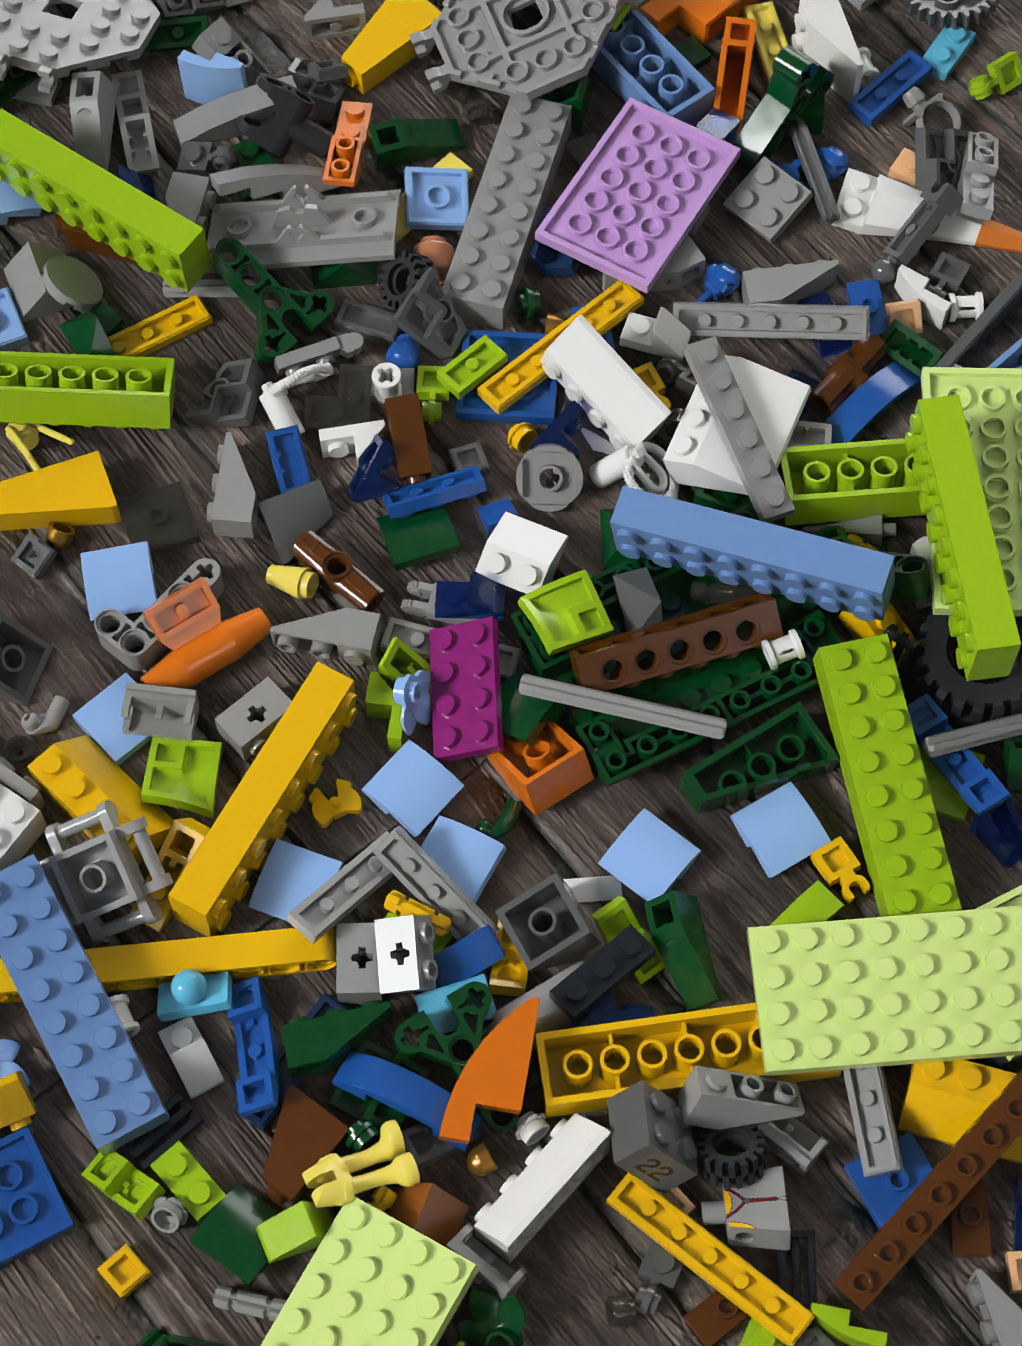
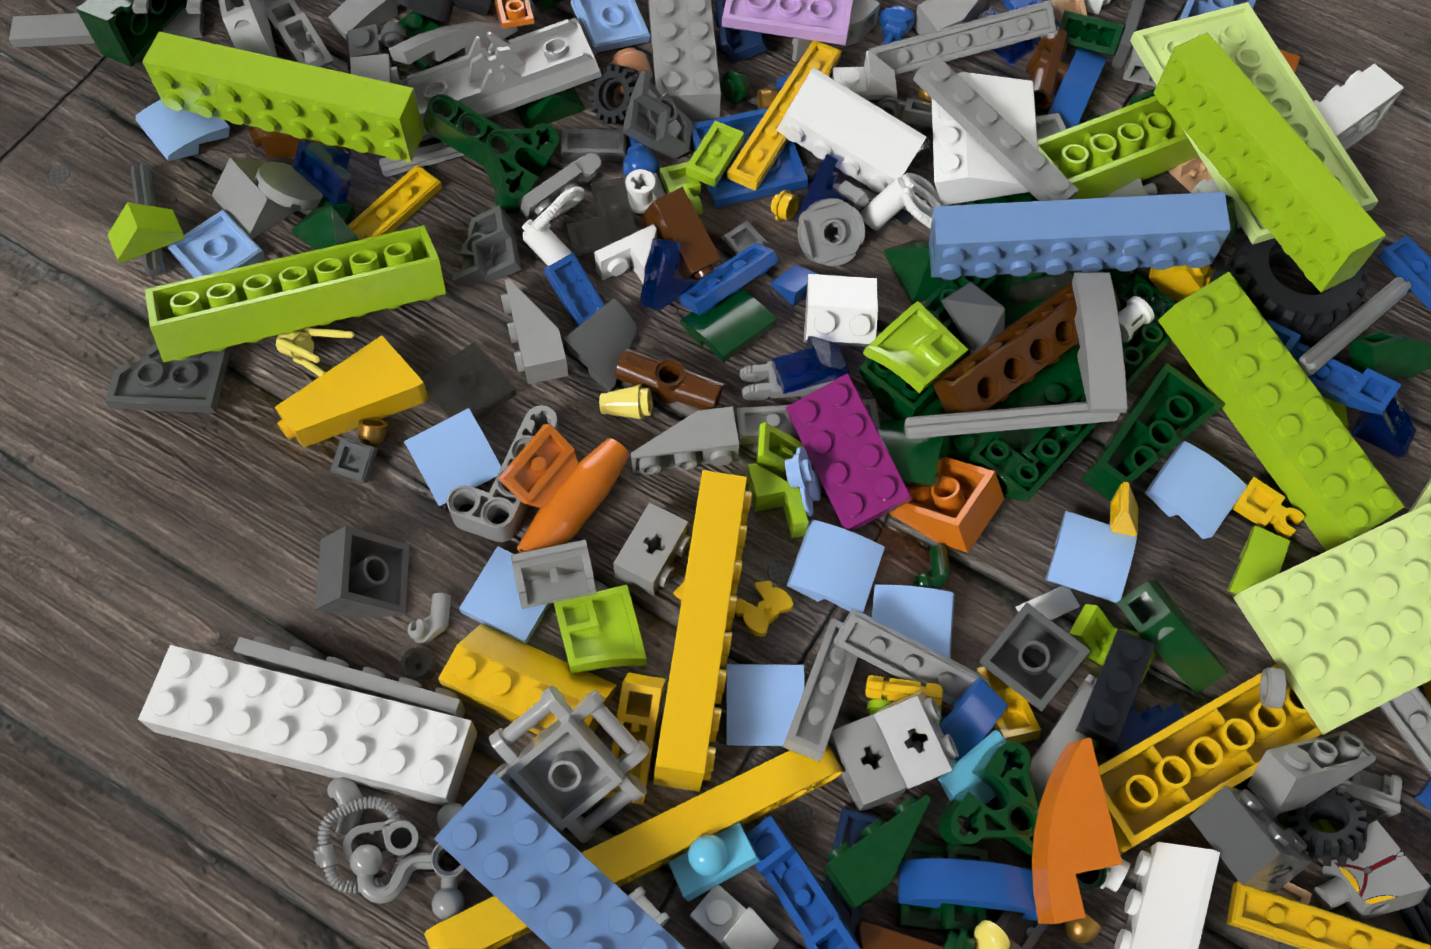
camera: 25 degrees left, 0 degrees up
(109, 276) = (325, 169): none -> clear blue slope
(587, 448) = (855, 196): none -> light grey tile
(695, 826) = (1124, 511): none -> yellow slope
(731, 661) = (1100, 343): none -> light grey slope
(733, 1018) = (1273, 687): none -> light grey tile

